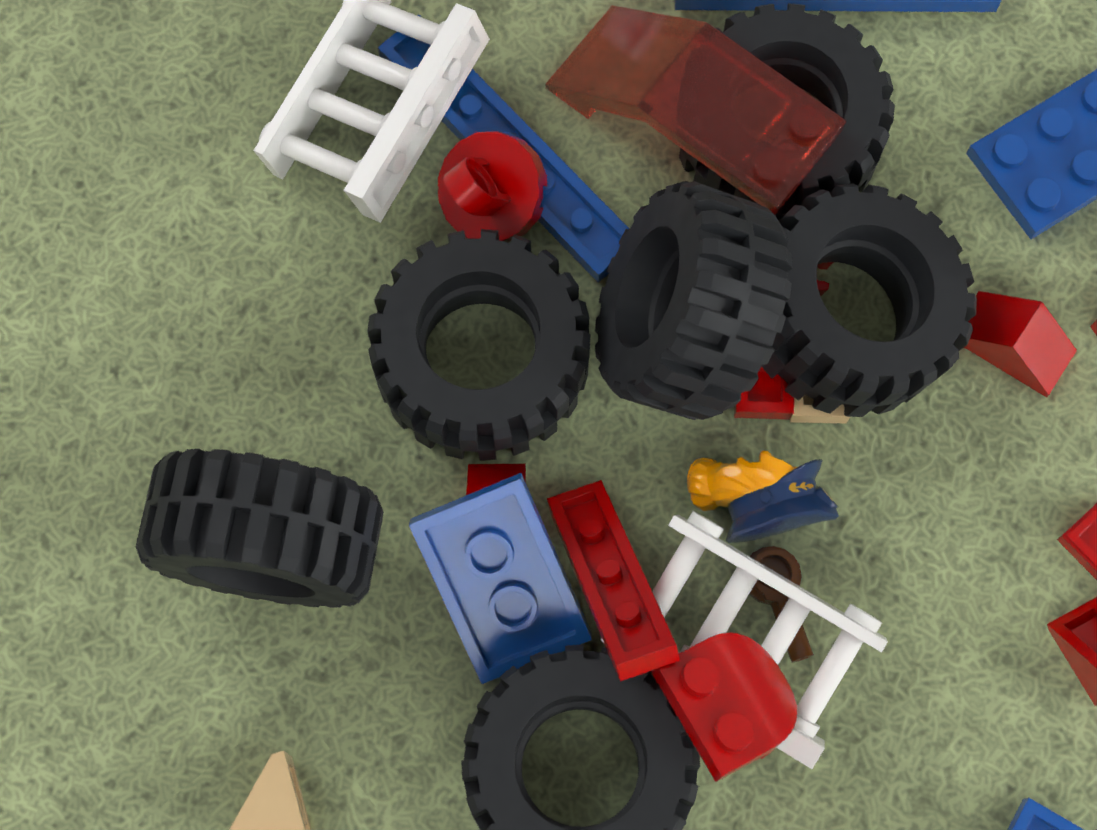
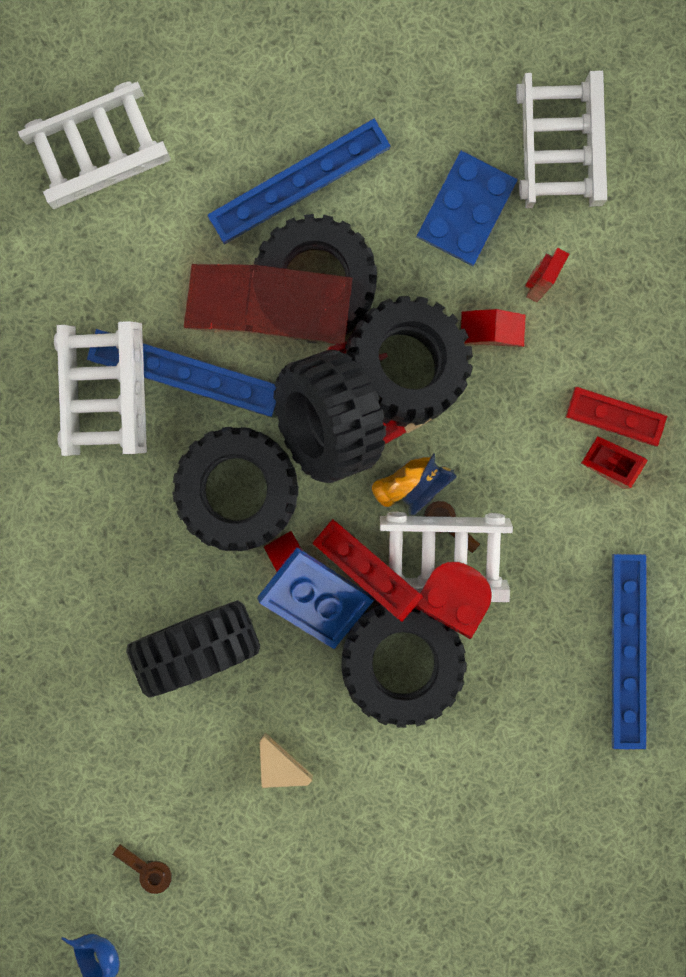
camera: 30 degrees left, 15 degrees up
(492, 185) = (191, 402): red tile -> none

